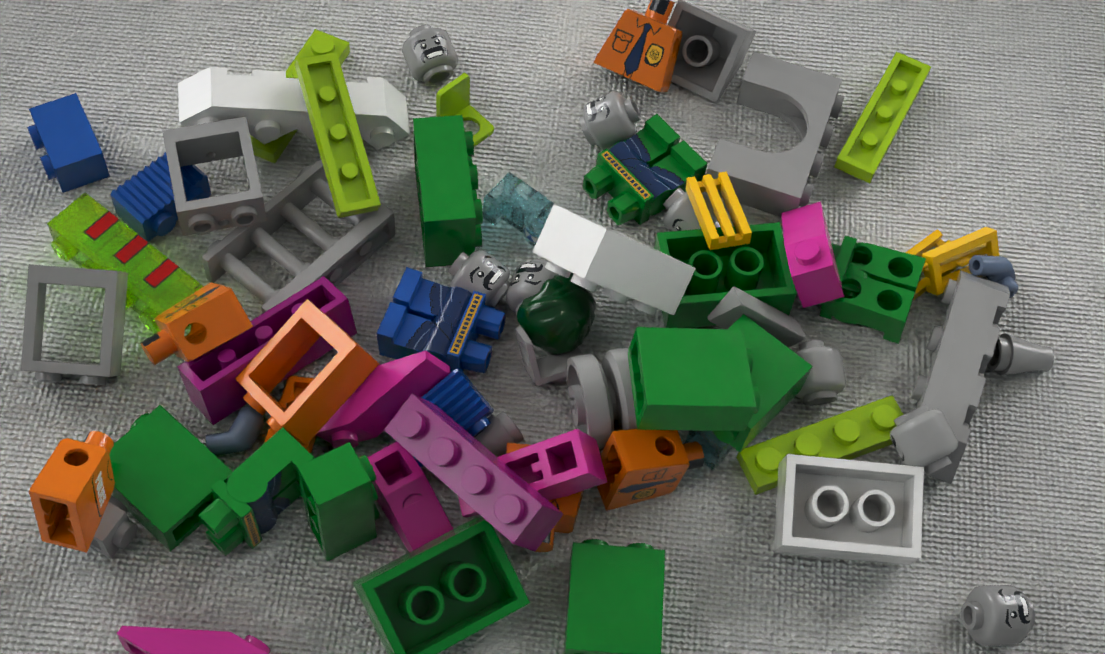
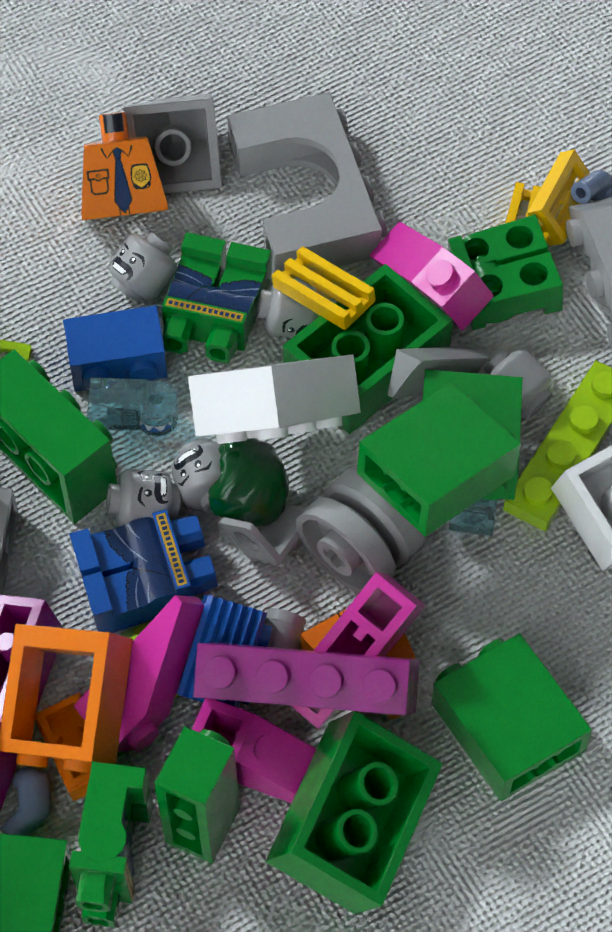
camera: 30 degrees left, 0 degrees up
(547, 163) = (115, 346): none -> blue brick
(645, 465) = (447, 560): orange torso -> none
(882, 117) = (388, 106): lime plate -> none

